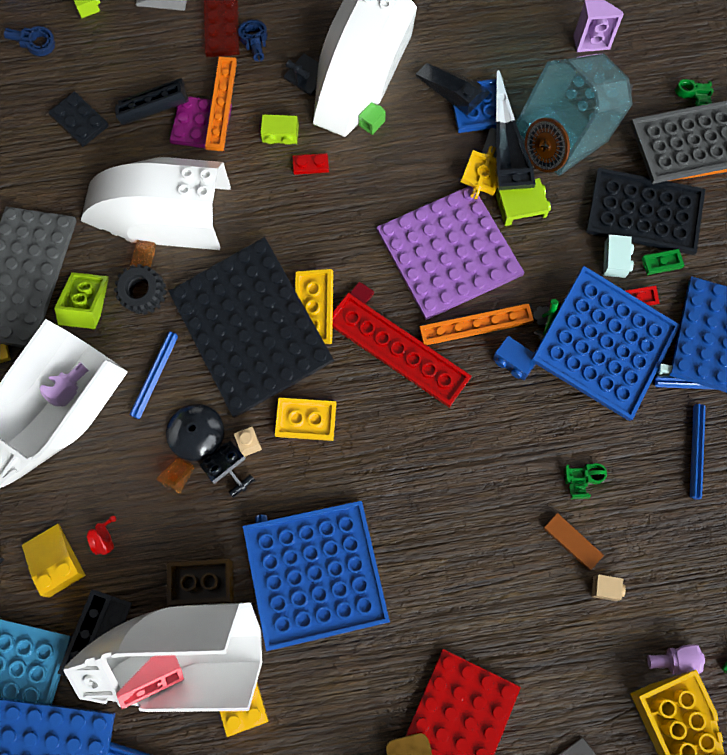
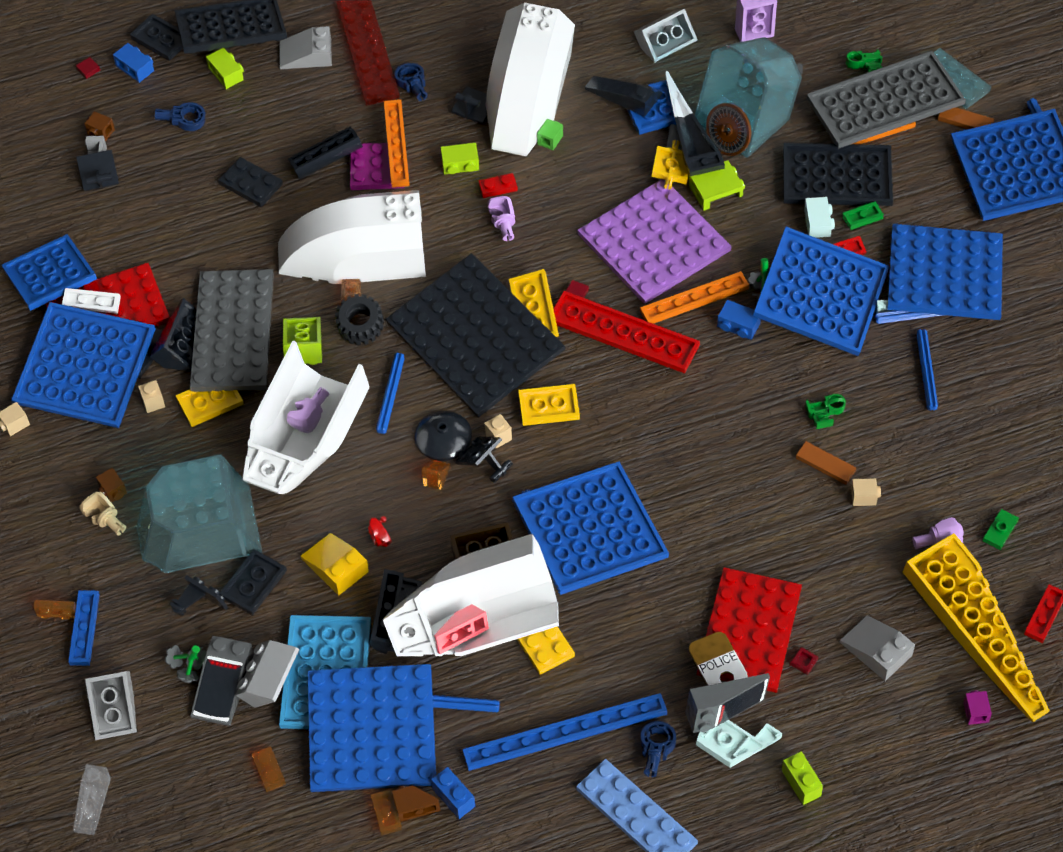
camera: 10 degrees left, 15 degrees down
(309, 191) = (502, 215): none -> lavender piece
(505, 31) = (666, 35): none -> light grey slope

